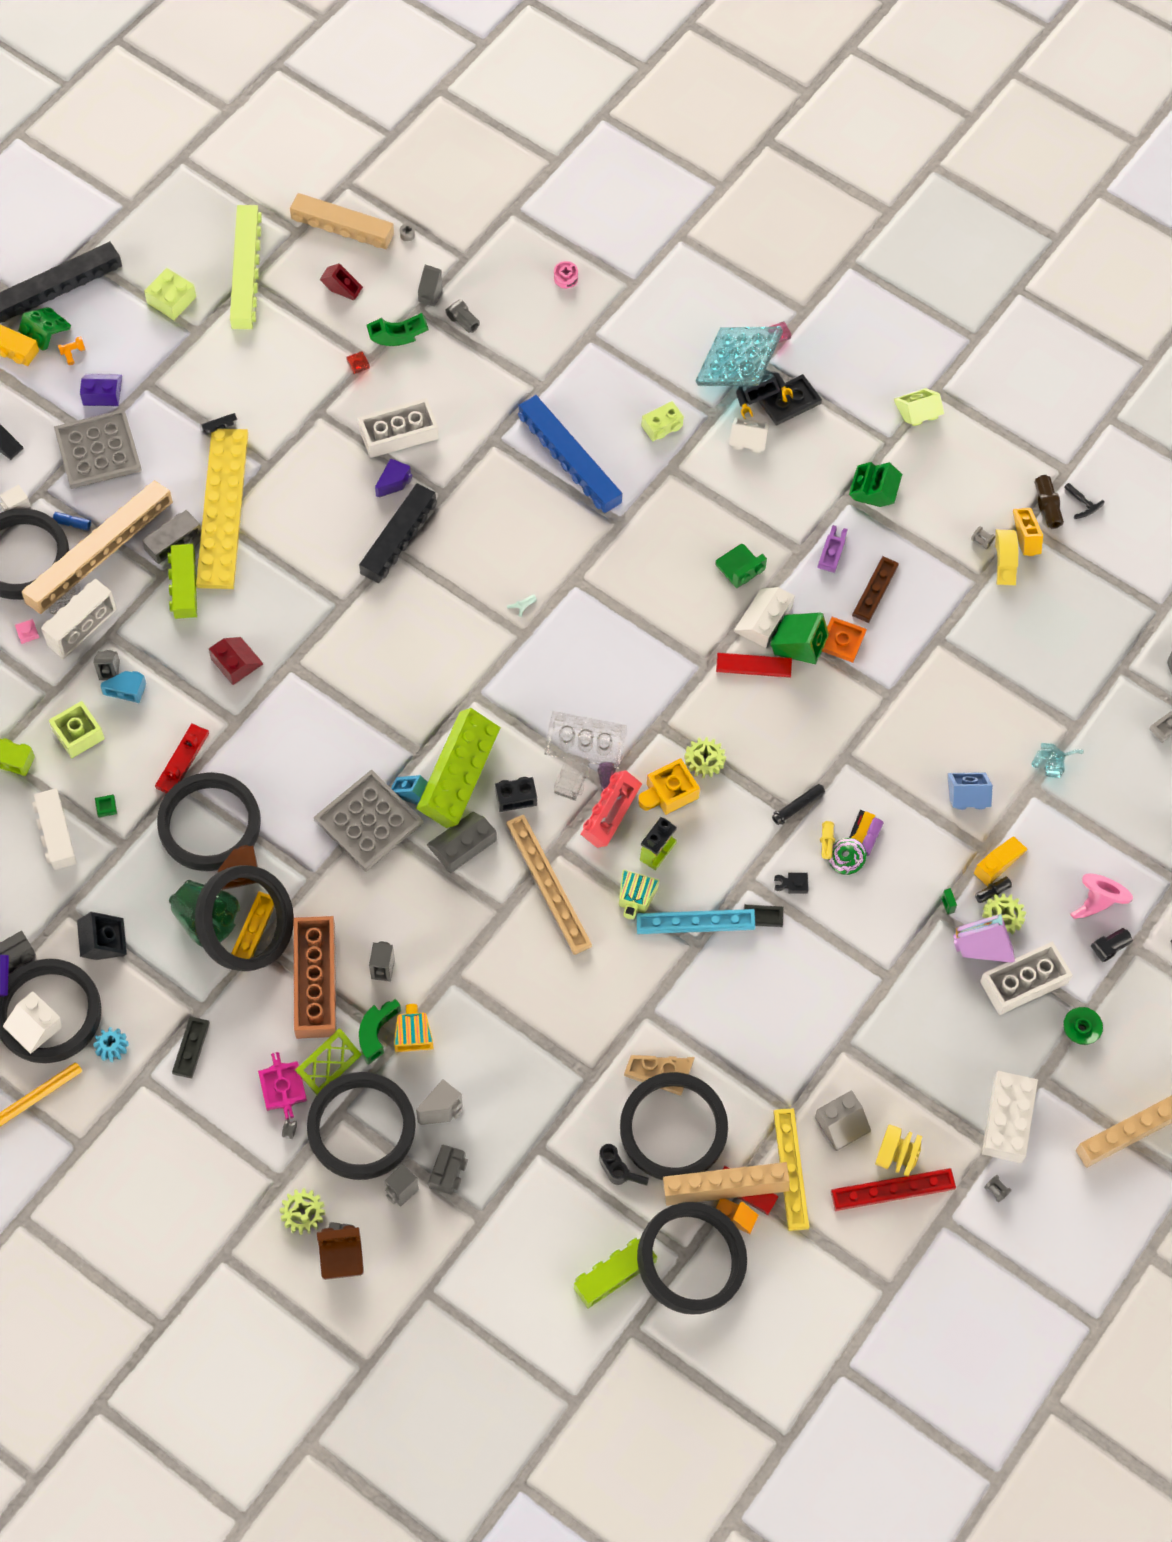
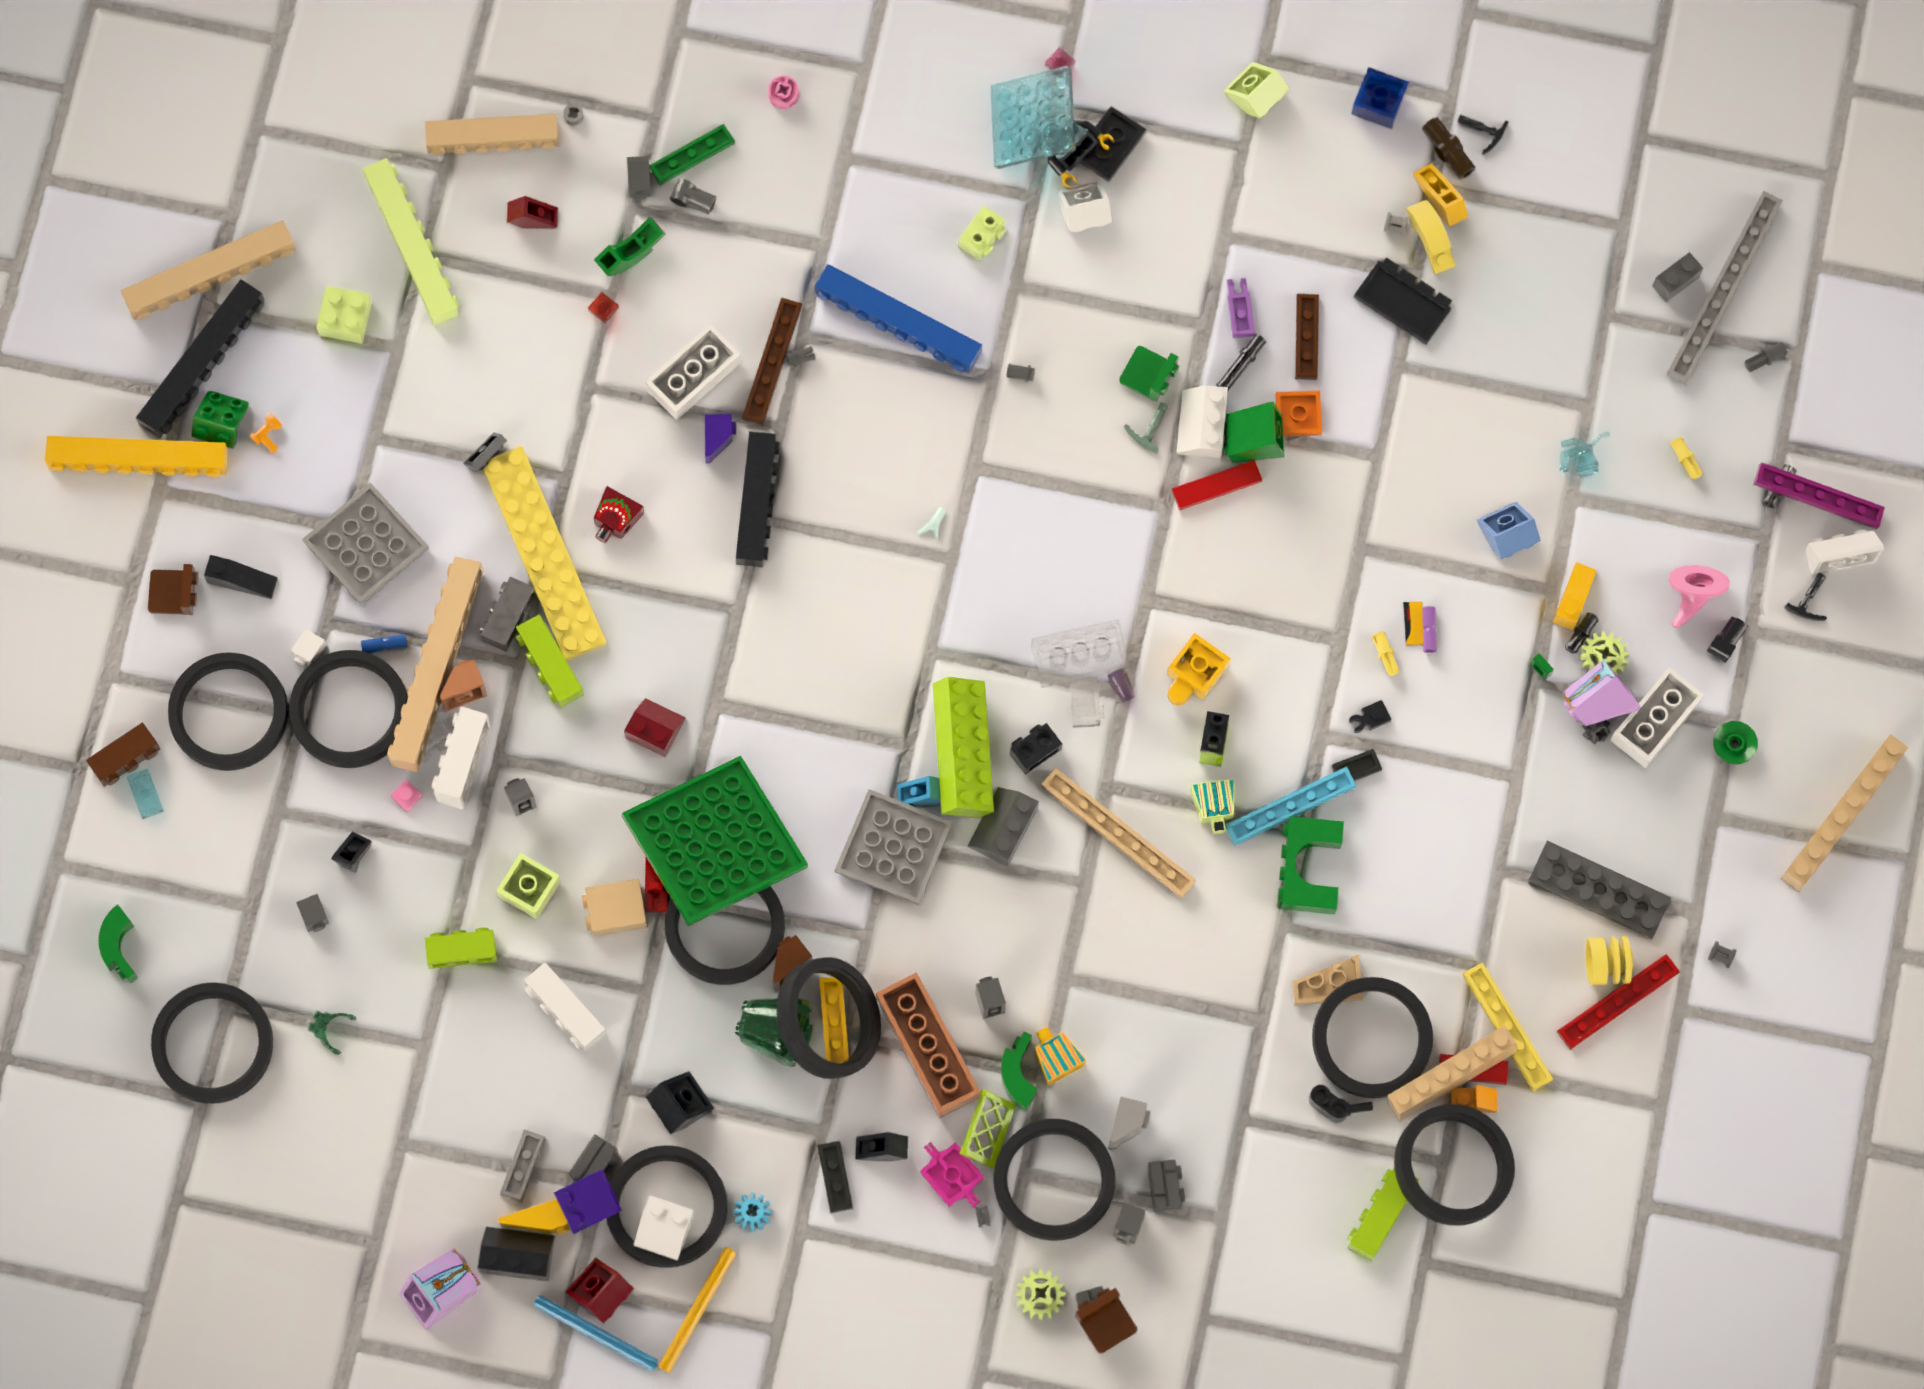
camera: 25 degrees left, 10 degrees up
(92, 229) = (208, 270): none -> tan brick
(100, 389) = (328, 467): dark purple slope -> none
(106, 806) = (603, 956): green tile -> none
(109, 568) = (463, 686): none -> nougat slope
(125, 686) = (552, 812): dark azure slope -> none
(133, 773) = (614, 907): none -> tan brick
(232, 755) = (714, 840): none -> green plate
(239, 1040) = (882, 1147): none -> black slope
(289, 502) = (616, 515): none -> dark red torso
(461, 447) = (772, 361): none -> reddish brown tile
(478, 290) = (691, 154): none -> green tile
(486, 451) = (800, 356): none -> dark grey pin
(620, 784) = (1145, 720): coral brick -> none
(646, 528) = (1020, 372): none -> dark grey pin
(692, 946) = (1296, 892): none -> green arch
(714, 755) = (1207, 620): yellowish green gear -> none
(717, 610) = (1145, 441): none -> sand green piece
(780, 816) = (1325, 648): black axle -> none
(821, 584) = (1246, 356): none -> black pin
(843, 1120) = (1538, 953): light grey slope -> none
(850, 863) = (1425, 664): dish -> none
(876, 484) = (1252, 209): green piece -> none
(915, 1106) = (1600, 904): none -> dark grey plate
(963, 594) = (1402, 301): none -> black hinge
(971, 967) = (1596, 731): none -> dark grey gear
(1009, 1117) = (1702, 874): white brick -> none
(1011, 445) = (1380, 98): none -> clear blue brick
(1138, 795) = (1686, 458): none -> light yellow axle

